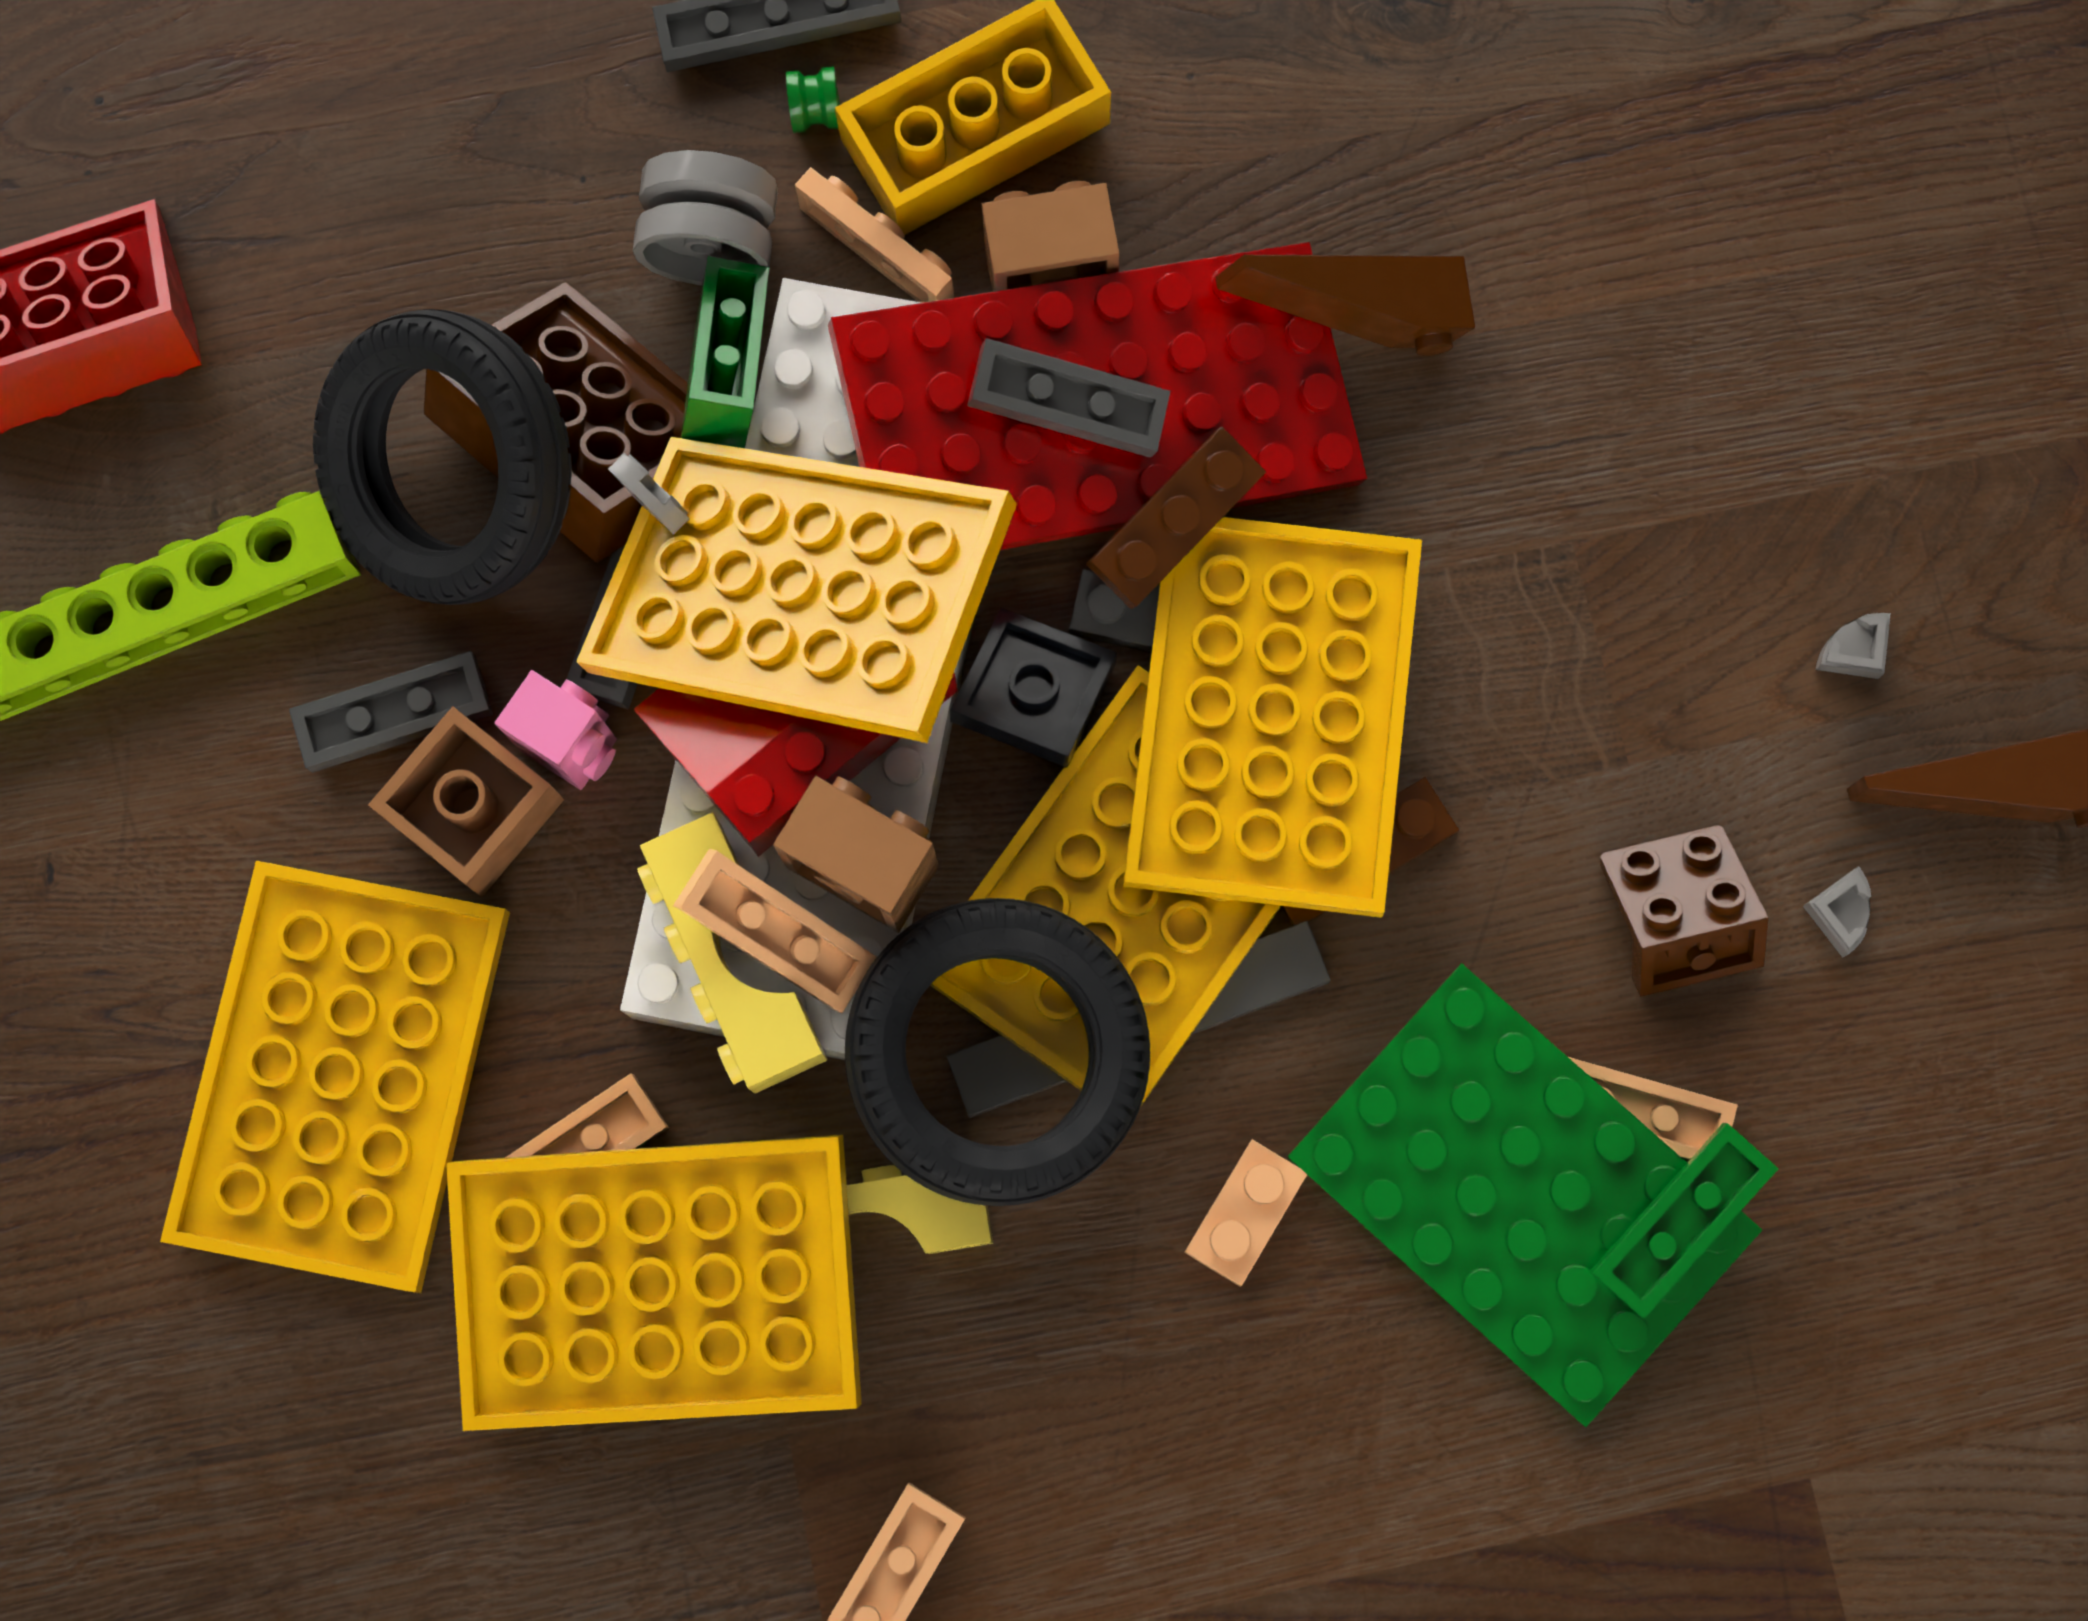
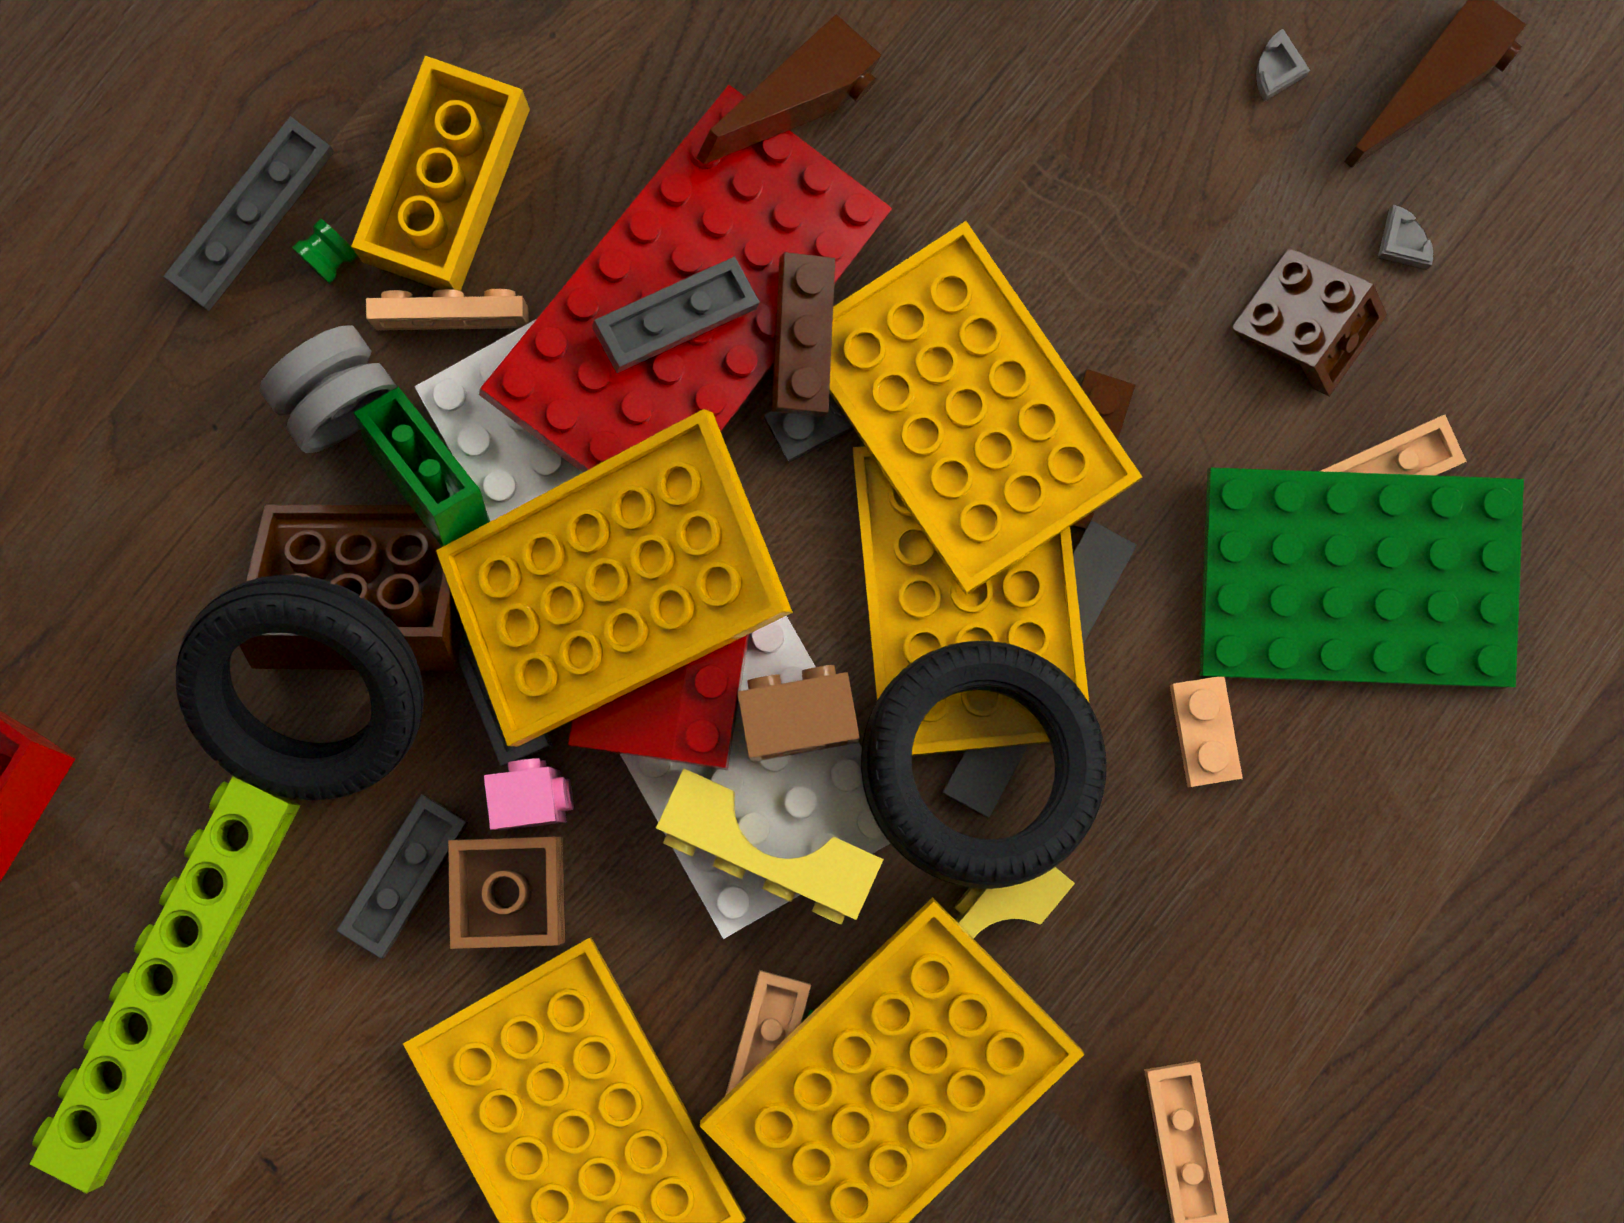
camera: 45 degrees left, 5 degrees up
(649, 493) = (461, 599): light grey tile -> none
(774, 930) = (787, 808): light nougat plate -> none
(1033, 687) = (804, 514): black plate -> none
(1049, 236) = (566, 220): medium nougat brick -> none
(1684, 1220) = (1477, 513): green plate -> none

